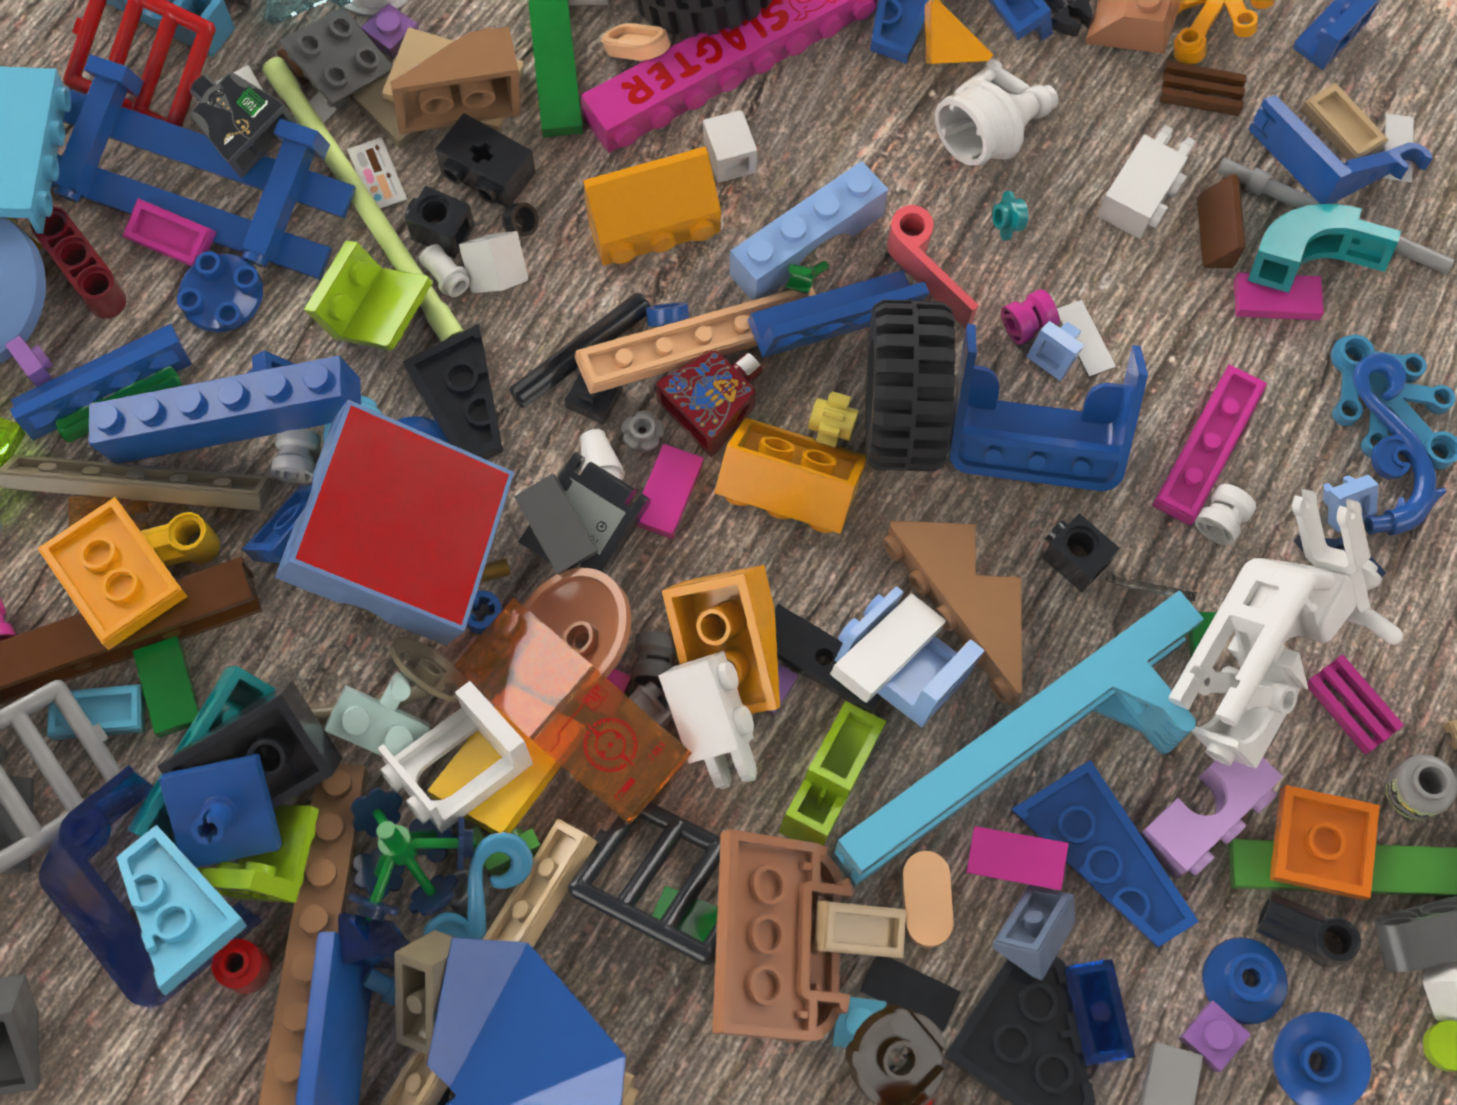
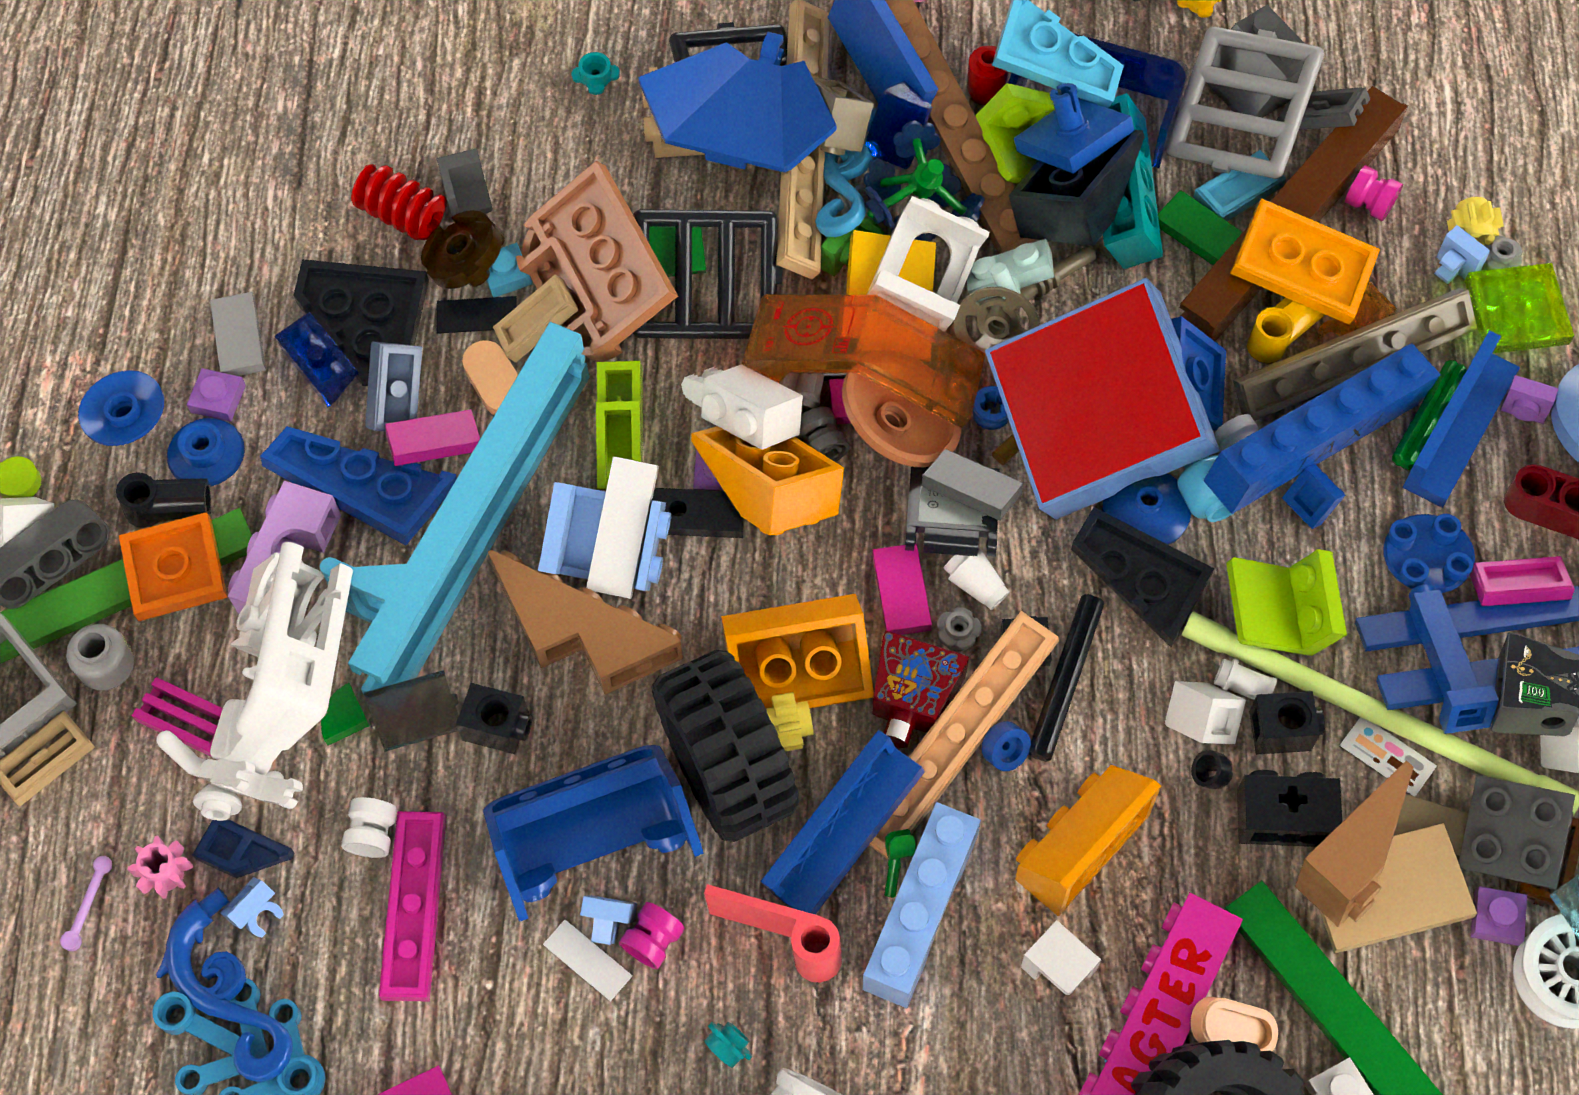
camera: 155 degrees right, 5 degrees down
(1418, 571) = (169, 874): none -> bright pink gear

